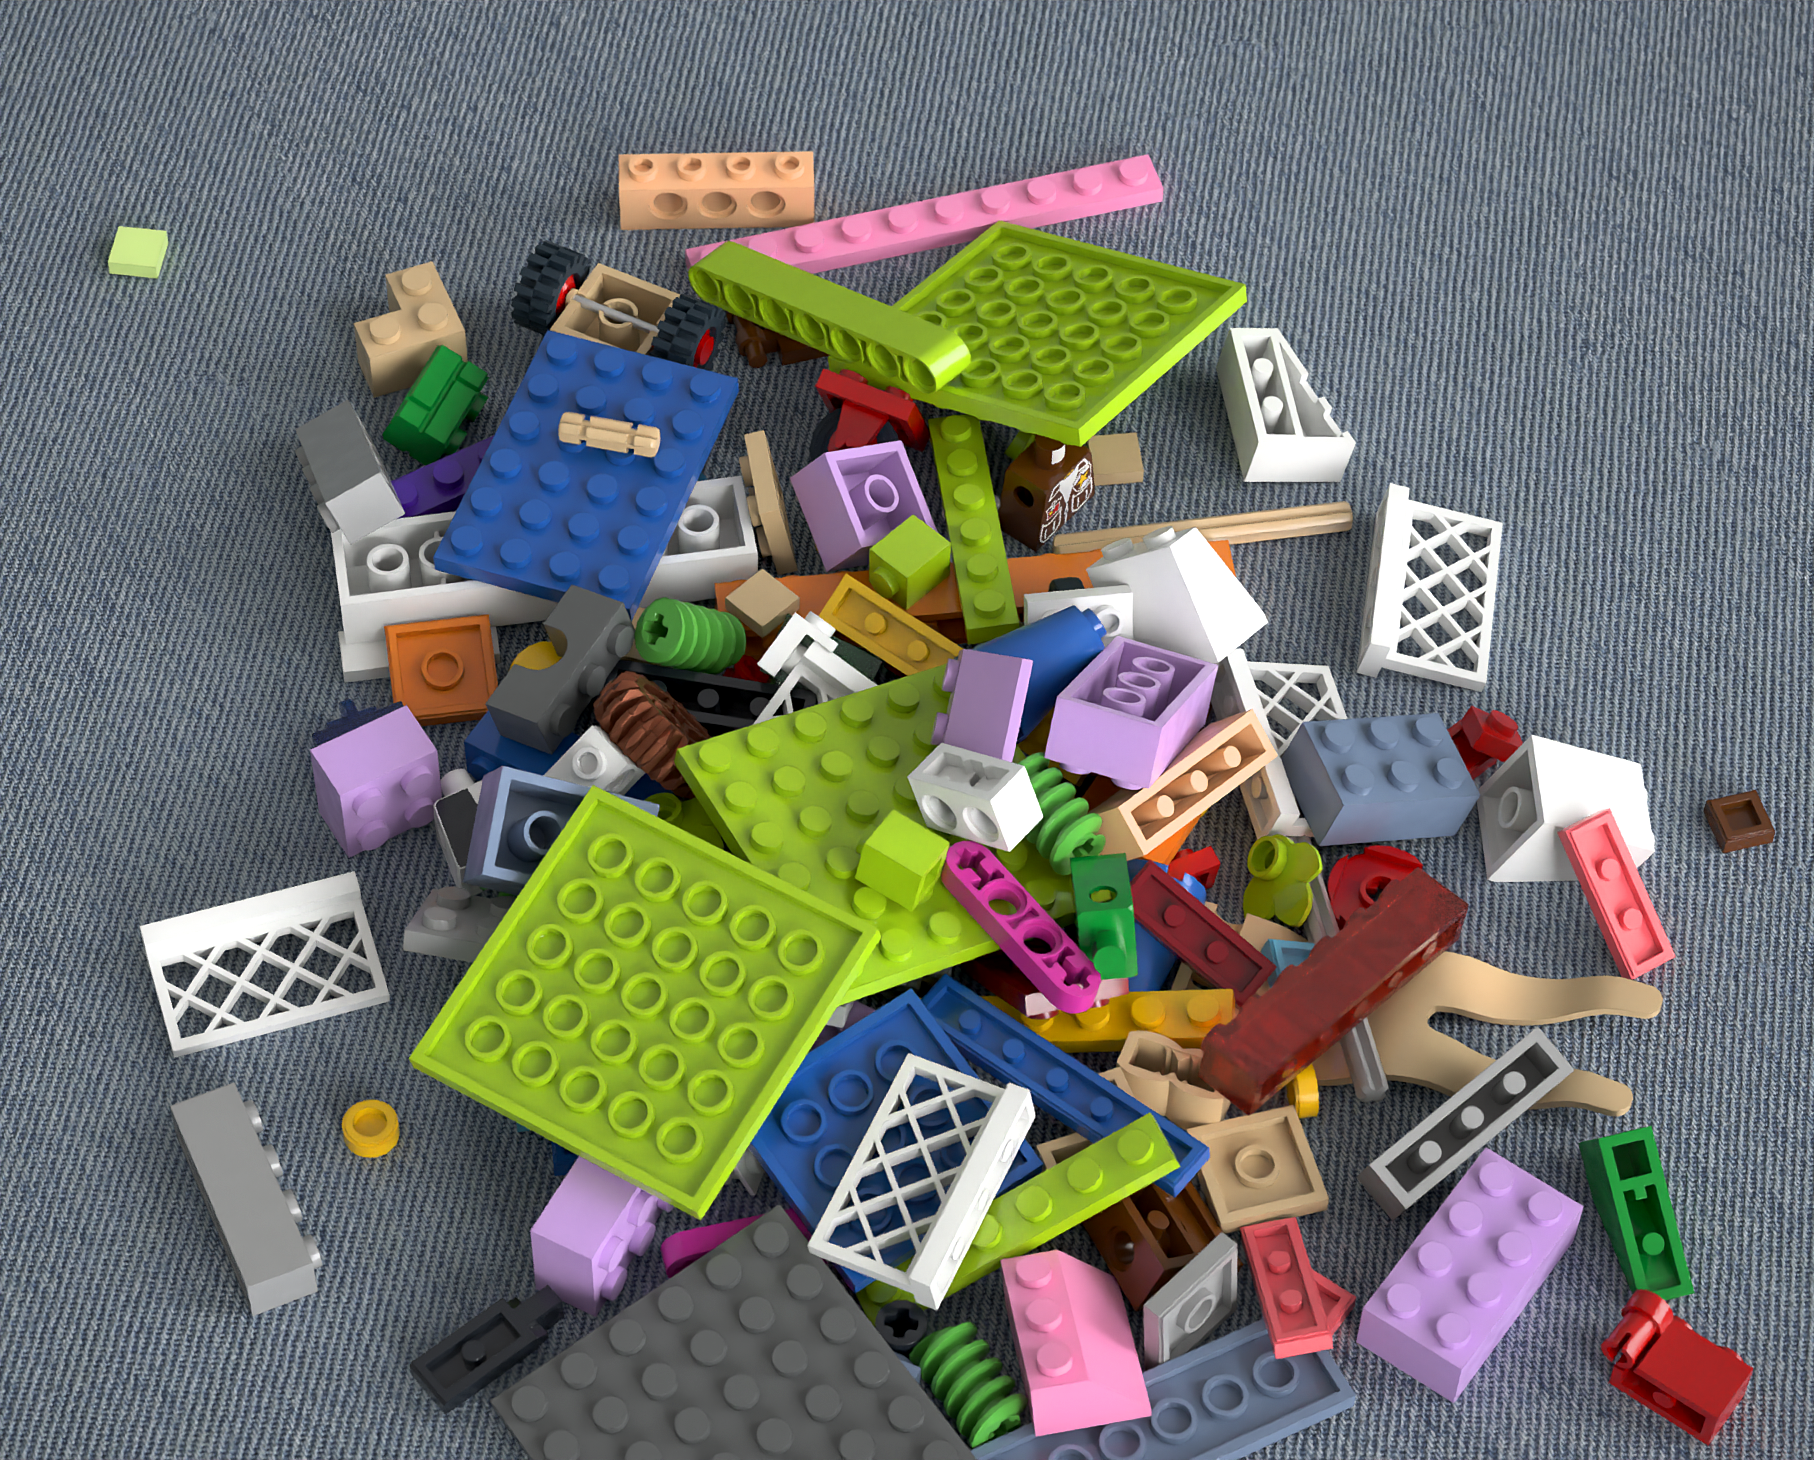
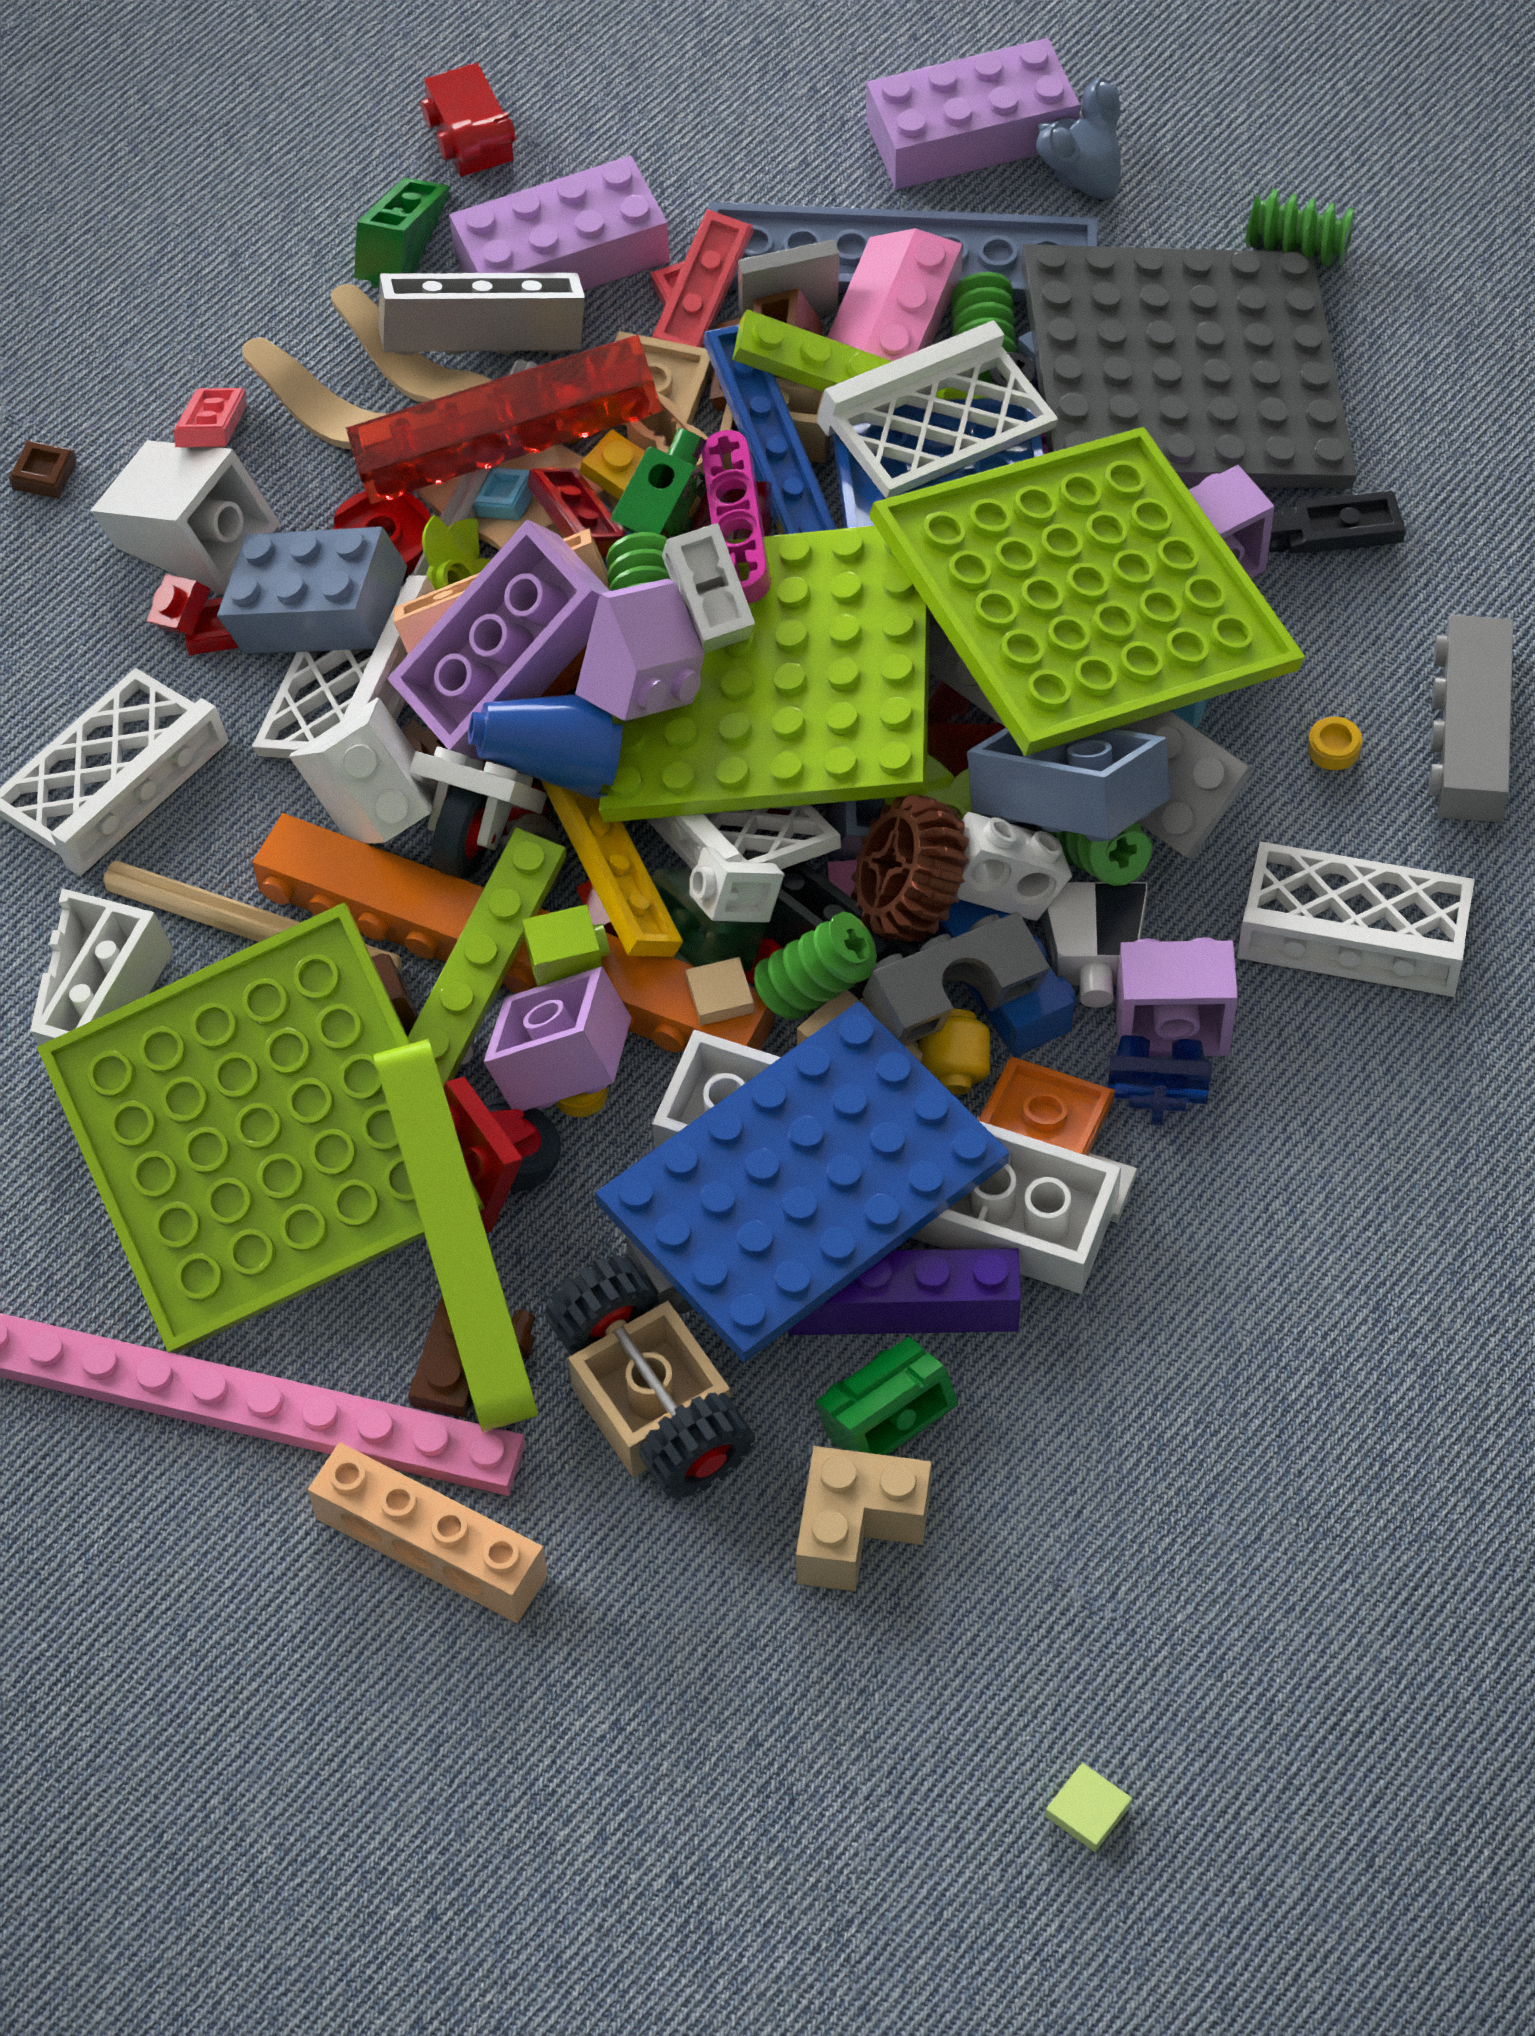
camera: 145 degrees left, 5 degrees up
(346, 473) = (1034, 1312): light grey brick -> none
(609, 434) = (770, 1164): tan axle -> none
(767, 503) = (639, 1105): tan plate -> none
(900, 859) = (802, 581): lime brick -> none

